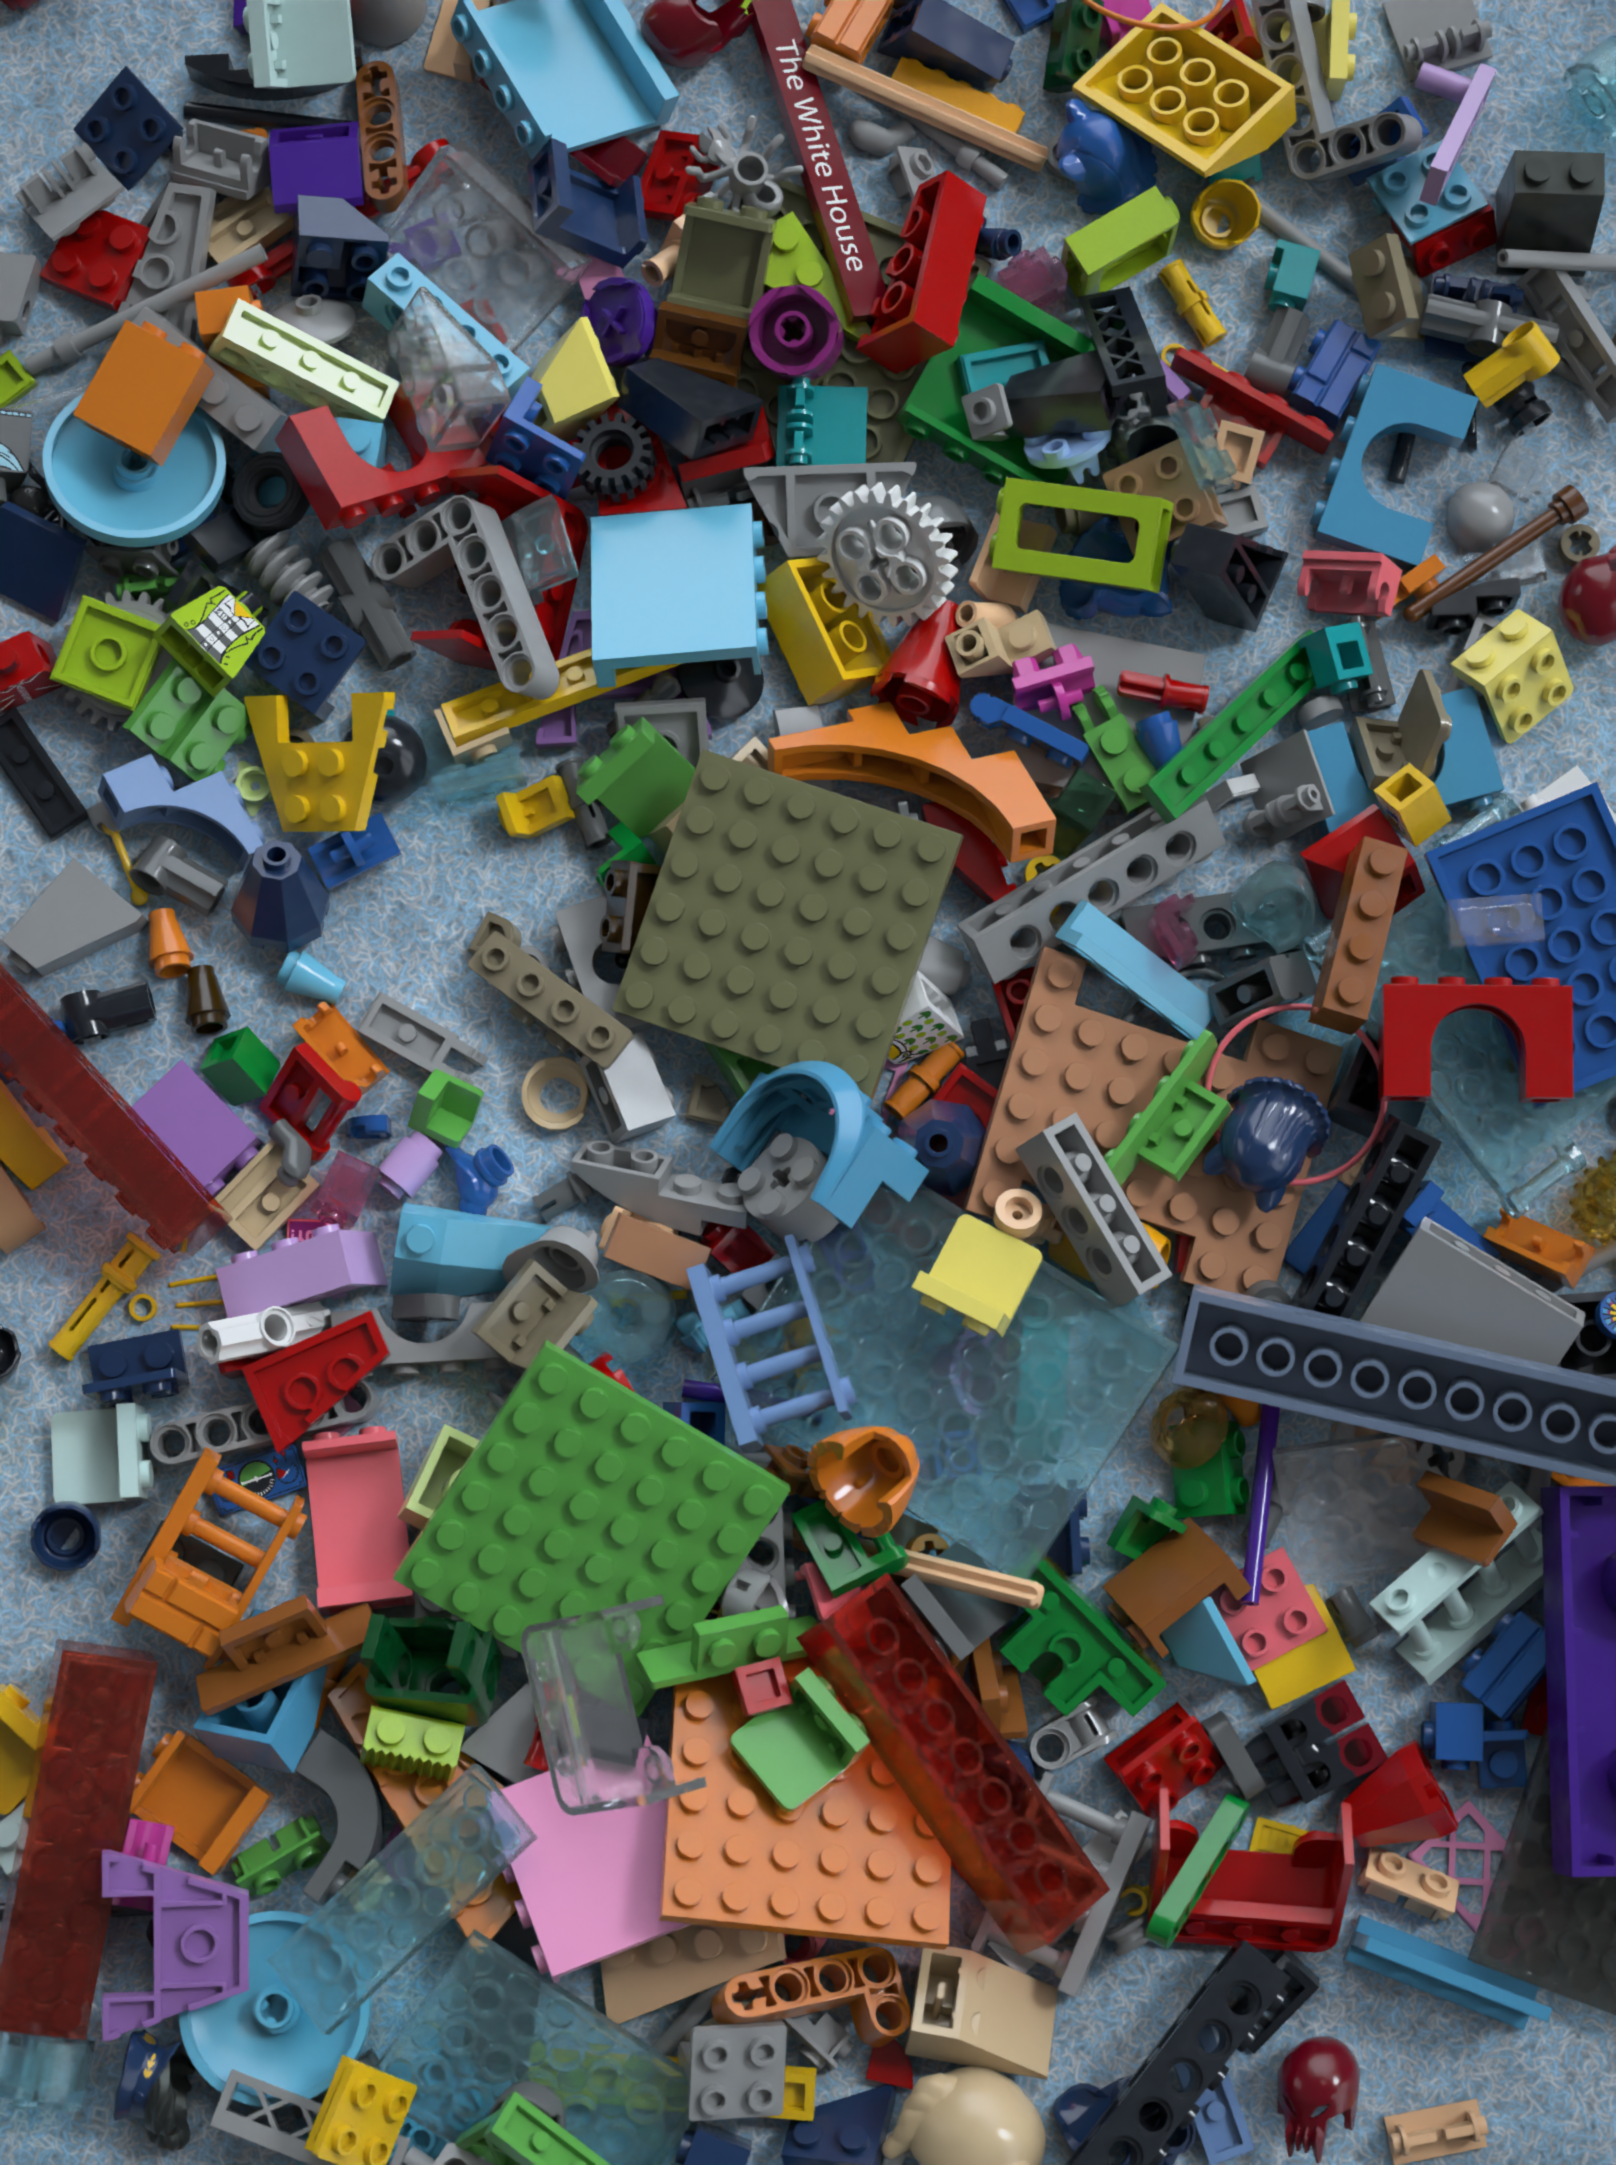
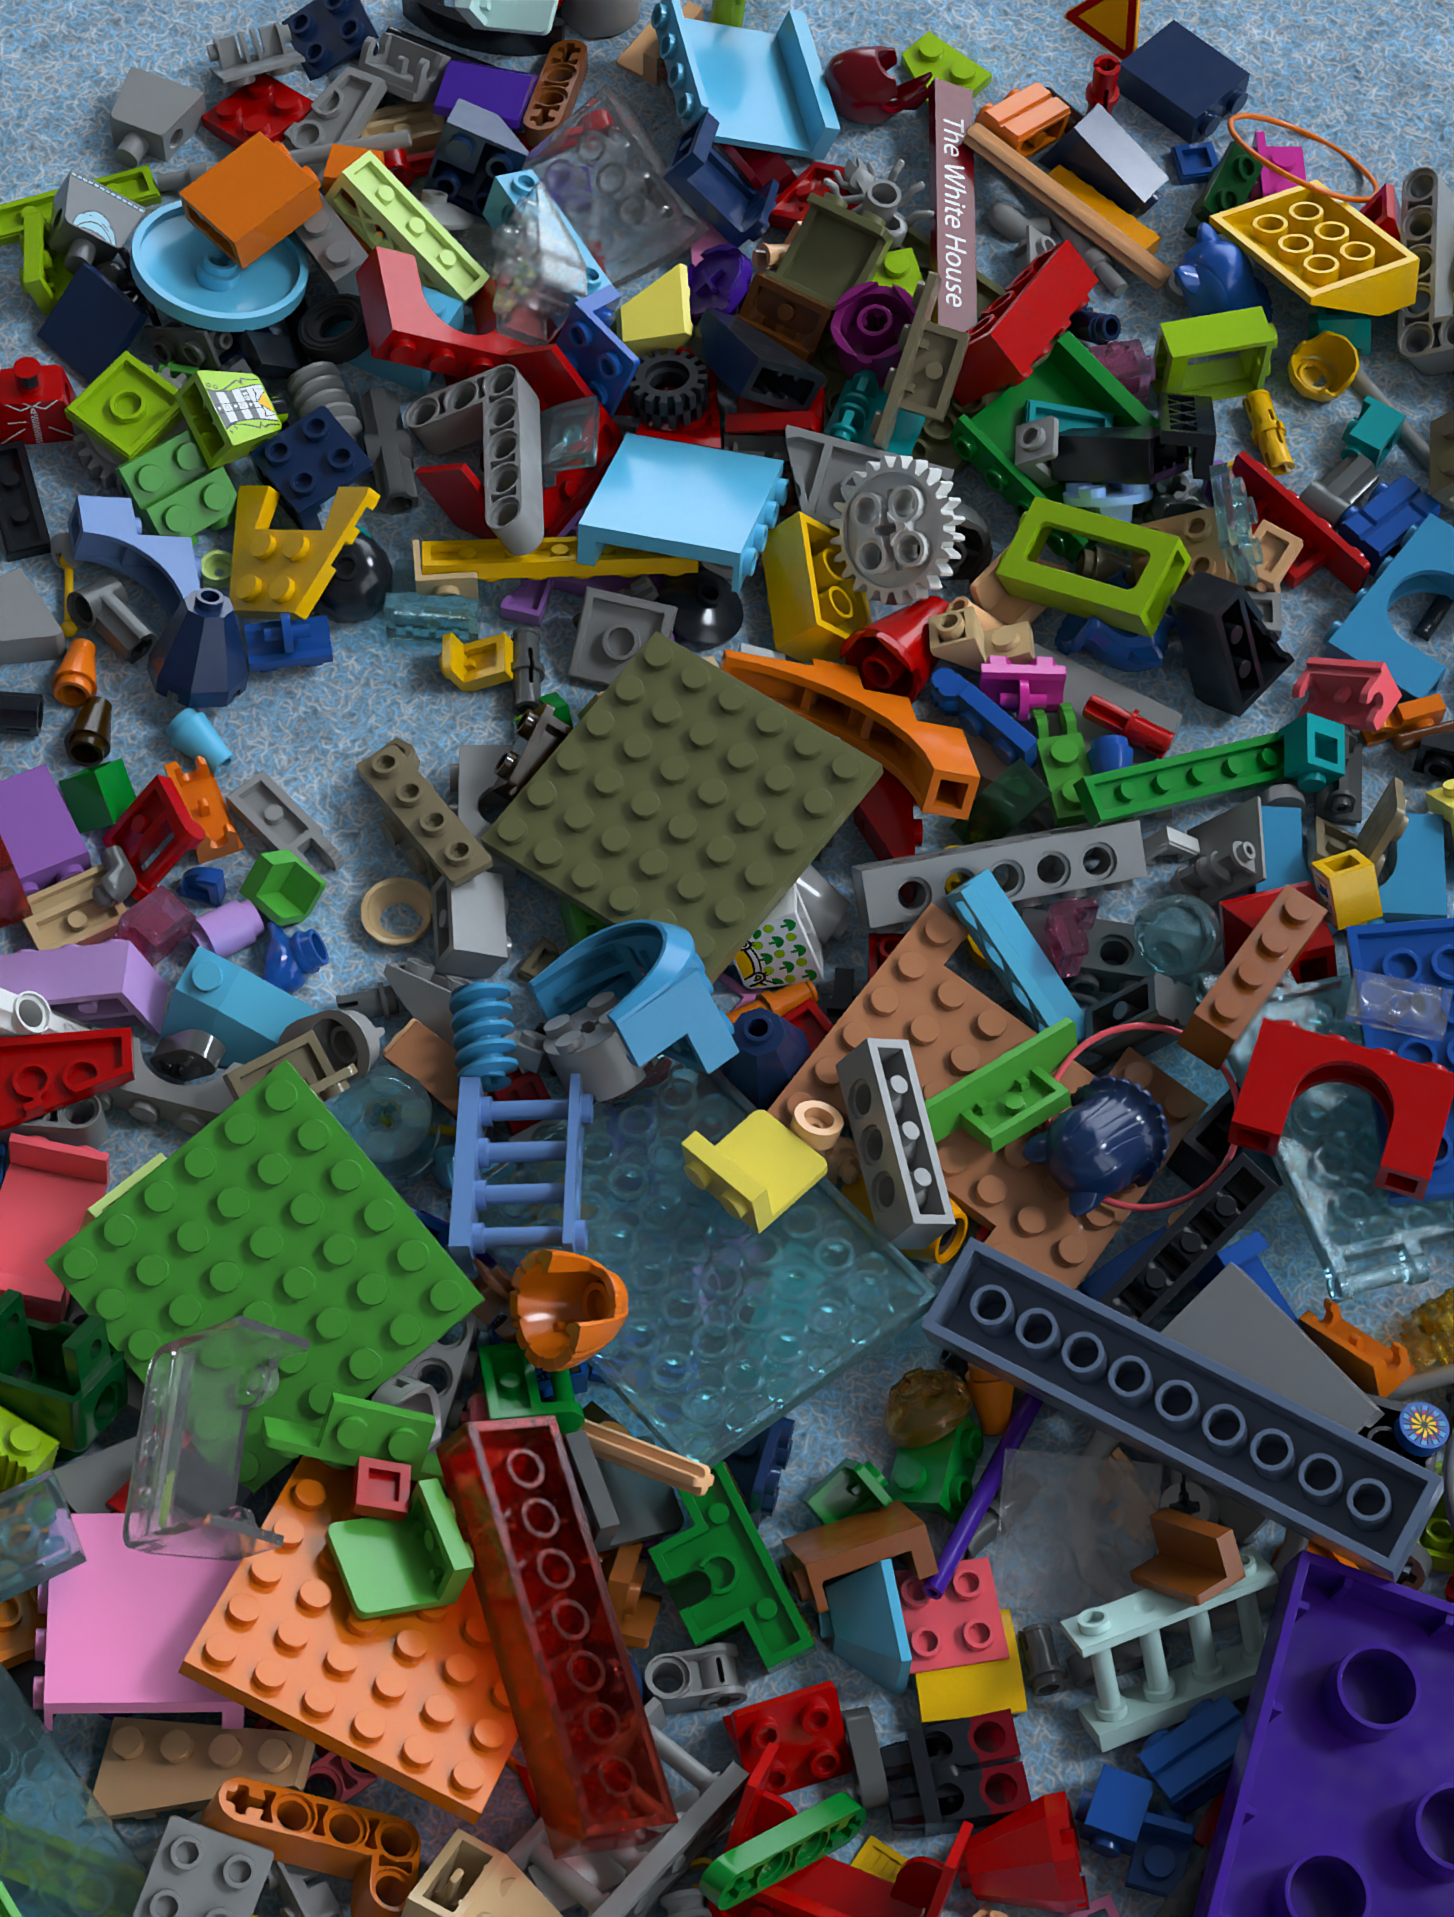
camera: 15 degrees right, 20 degrees down
(637, 777) = (581, 649): bright green bracket -> none
(689, 1216) = (480, 1034): none -> dark azure piece
(862, 368) = (926, 368): none -> dark tan bracket

